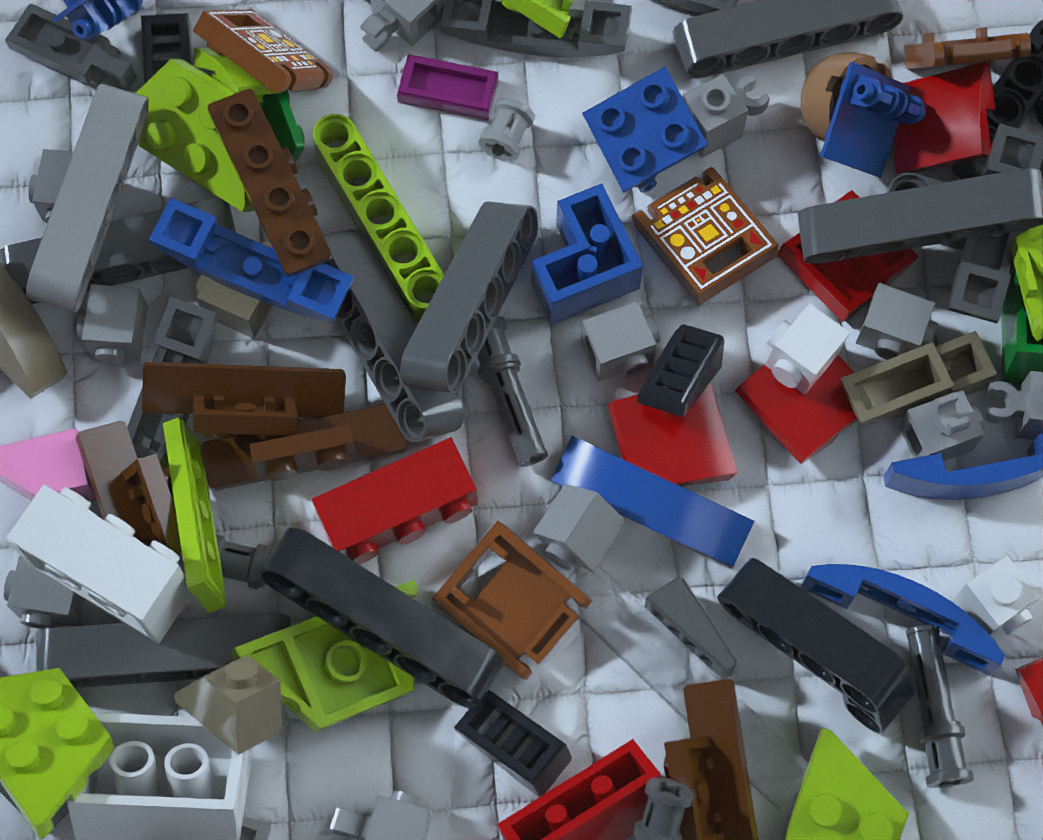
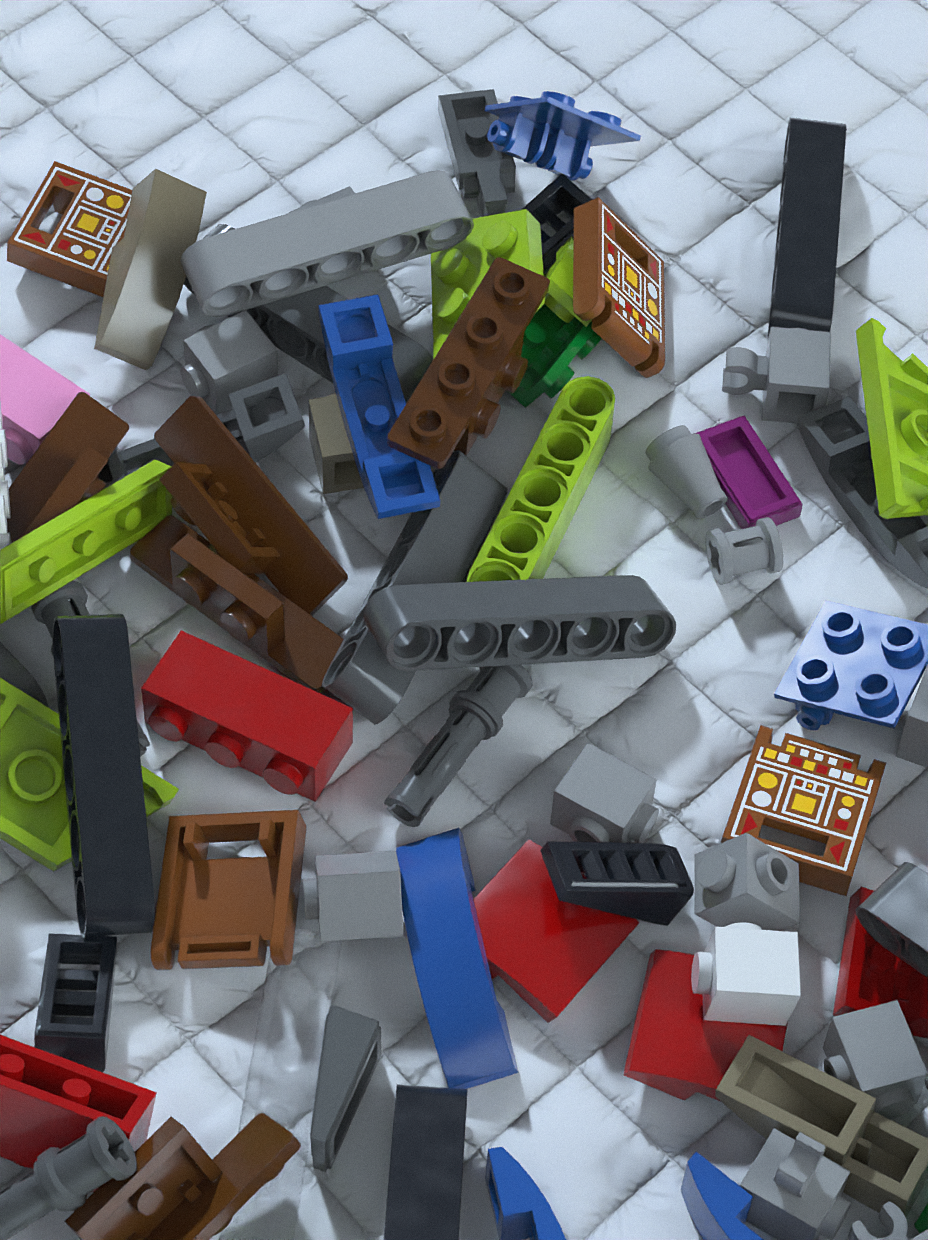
camera: 50 degrees right, 15 degrees down
(423, 117) = (685, 469): none -> light grey cone
(595, 263) = (658, 717): blue brick -> none
(742, 306) = (746, 884): none -> light grey brick

